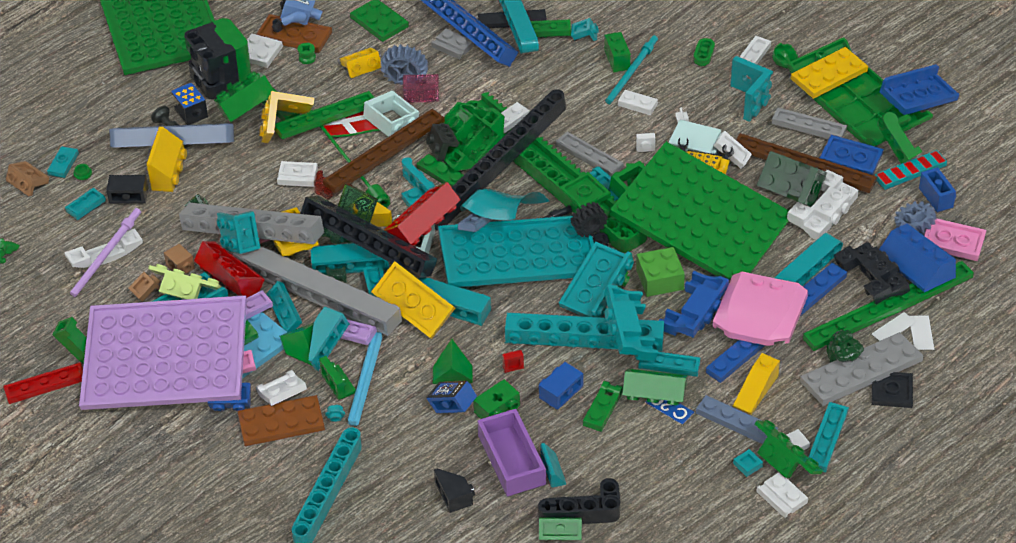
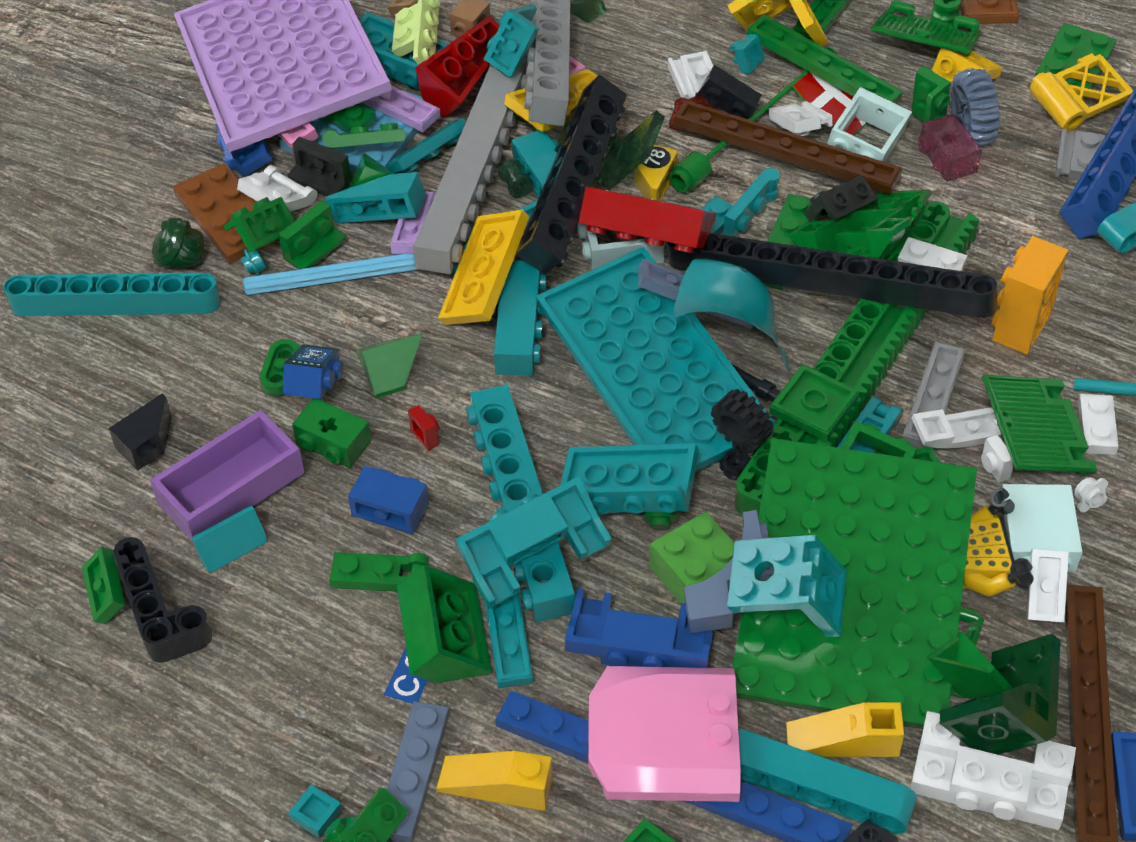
camera: 70 degrees right, 5 degrees up
(269, 329) = (361, 136): none -> green plate
(276, 361) = (319, 167): none -> pearl dark grey bracket
(292, 146) = (748, 53): none -> teal tile
(303, 446) = (178, 245): none -> dark green hair
(314, 394) = (262, 223): none -> green bracket
(323, 65) = (926, 29): none -> green window
(327, 161) = (729, 93): none -> black bracket
(363, 138) = (800, 119): none -> white plate
(388, 79) = (930, 95): none -> green bracket
(412, 32) = (1065, 101): none -> yellow piece
(434, 417) = (273, 367): none -> green plate
(559, 75) = (1028, 294): none -> light orange brick
(620, 140) = (956, 429): none -> white slope
(633, 119) = (1038, 424): none -> green window
(685, 243) = (708, 599): none -> sand blue arch
(716, 218) = (803, 579): none -> teal bracket
(771, 188) = (968, 668): none -> green slope
(785, 244) = (850, 731): none -> yellow slope

